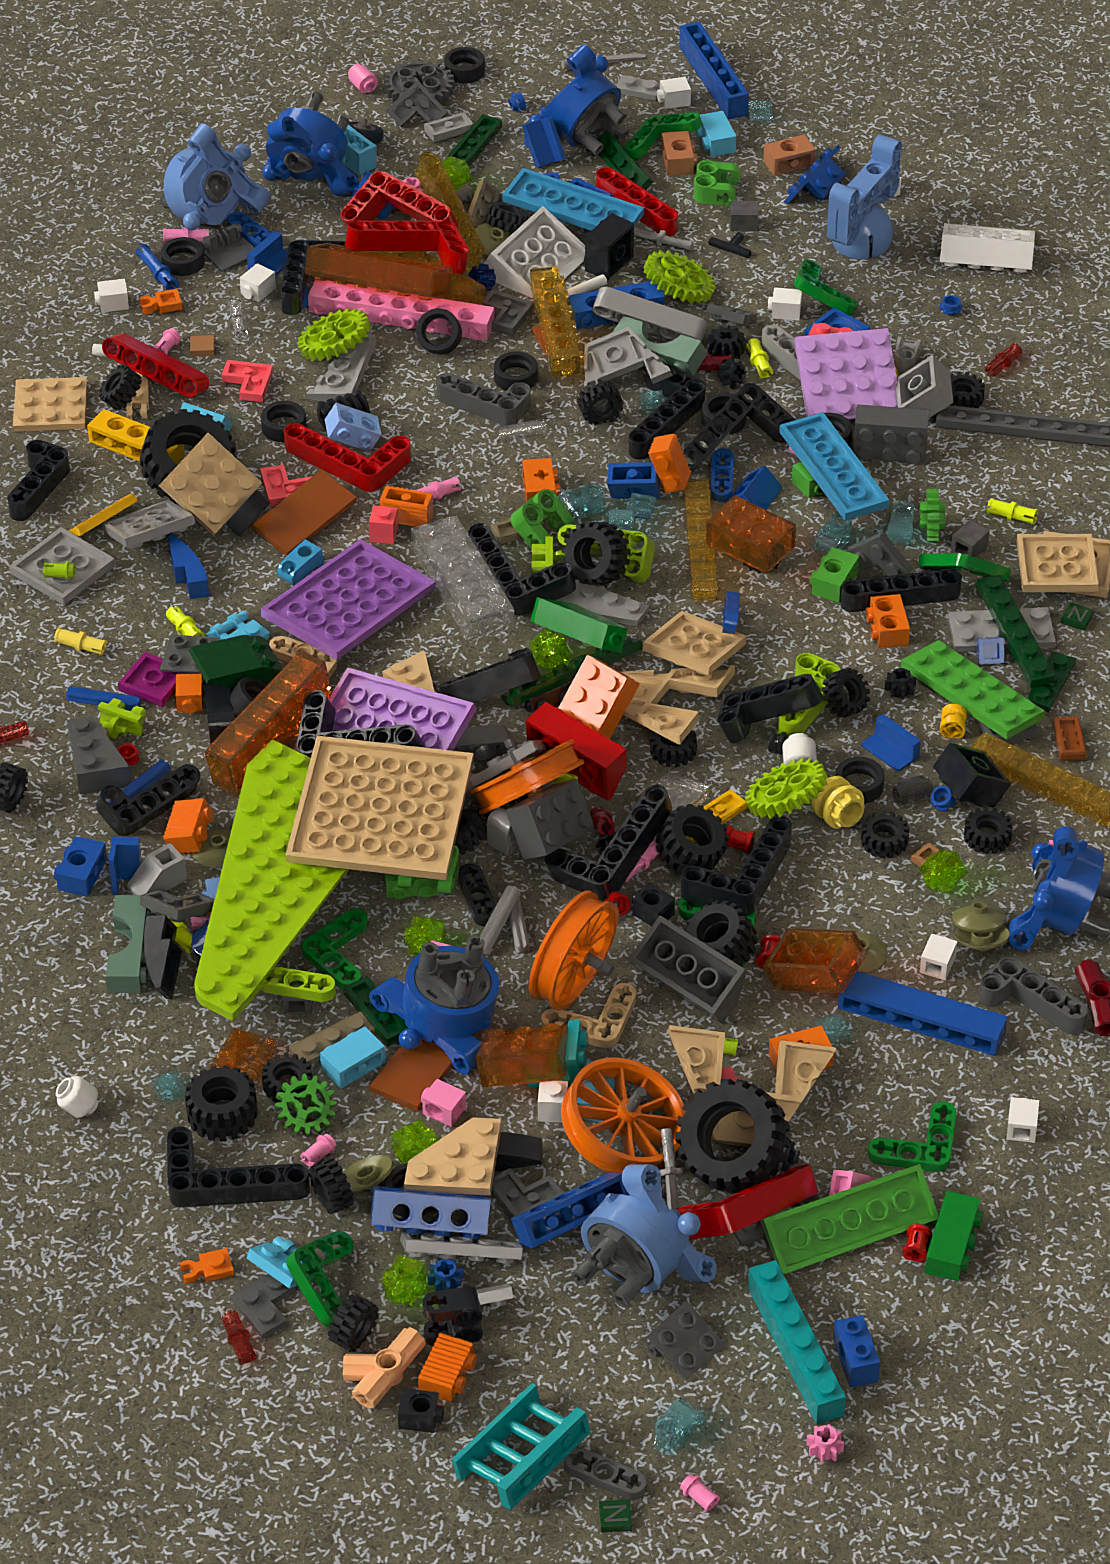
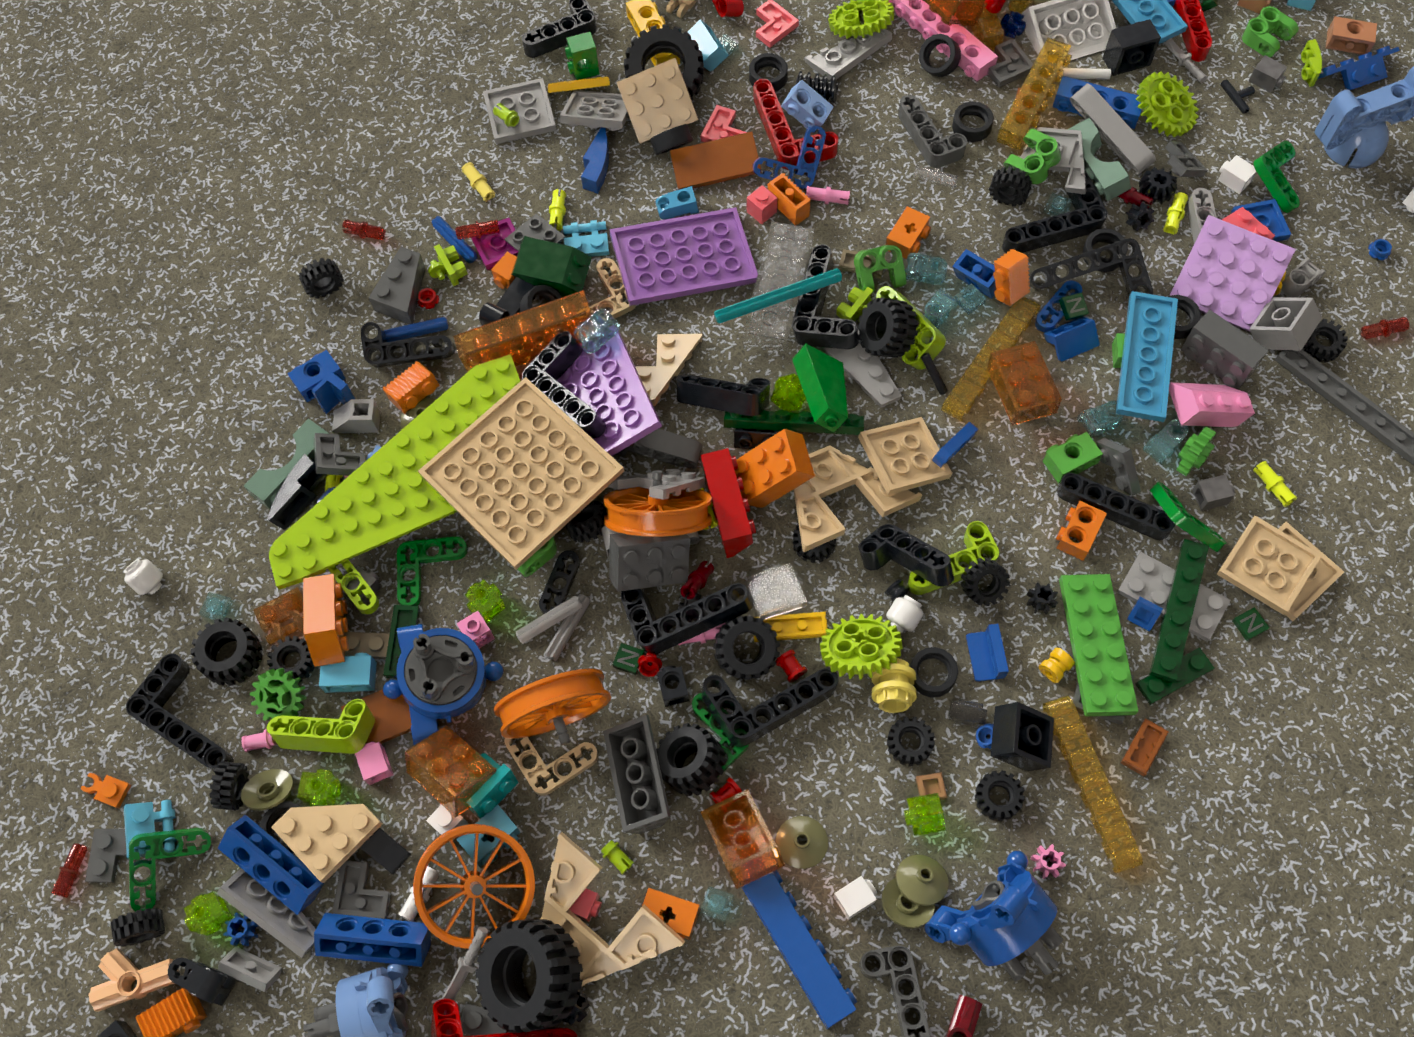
camera: 40 degrees right, 20 degrees up
(89, 487) = (582, 56): none -> green brick
(128, 672) = (477, 229): none -> clear red axle
(300, 1016) = (324, 620): none -> orange brick
(340, 676) = (598, 329): none -> clear light blue piece
(377, 1102) = (325, 734): none -> lime beam
(393, 476) = (801, 166): none -> blue beam
(476, 576) = (778, 295): none -> teal axle
(576, 1165) = (409, 909): none -> white pin
(613, 365) = (1040, 159): none -> bright green piece
(661, 571) = (934, 374): none -> black piece
(737, 466) = (1073, 306): none -> dark green tile
(775, 189) = (1313, 62): none -> lime slope
(912, 478) = (1210, 404): none -> bright pink slope

